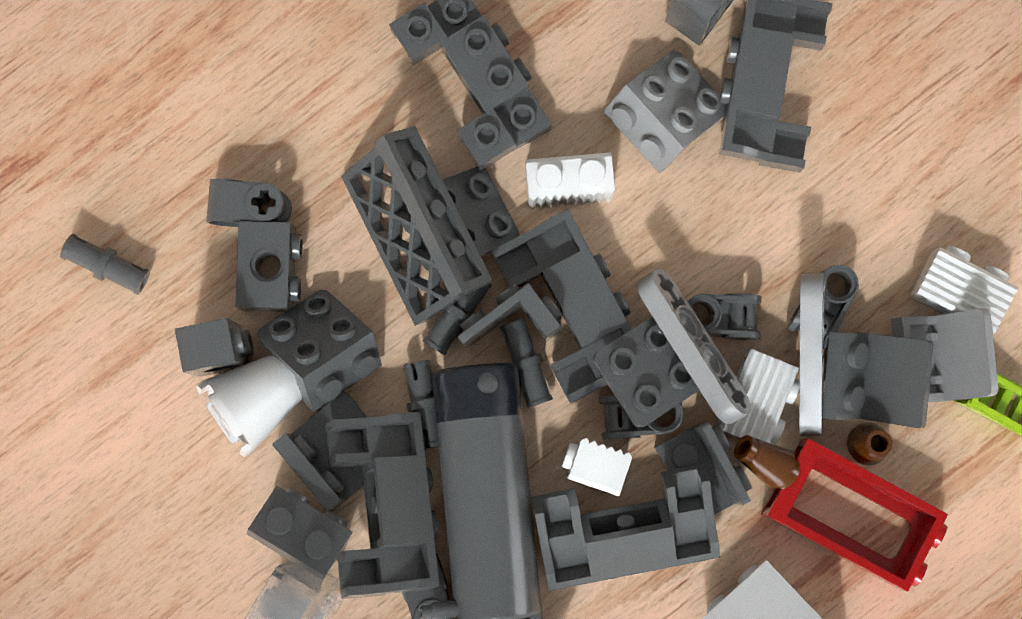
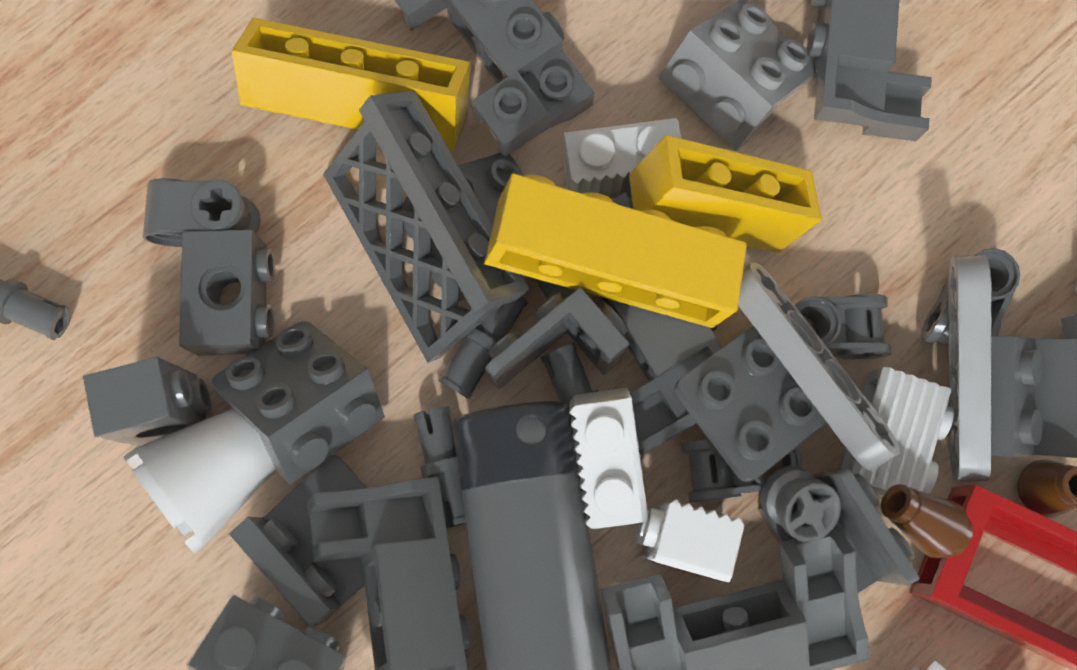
camera: 10 degrees left, 5 degrees down
(363, 106) = (333, 75): none -> yellow brick
(542, 404) = (608, 458): none -> white brick
(555, 258) = (616, 251): none -> yellow brick
(641, 216) = (727, 190): none -> yellow brick
(687, 448) = (816, 503): none -> flat silver wheel

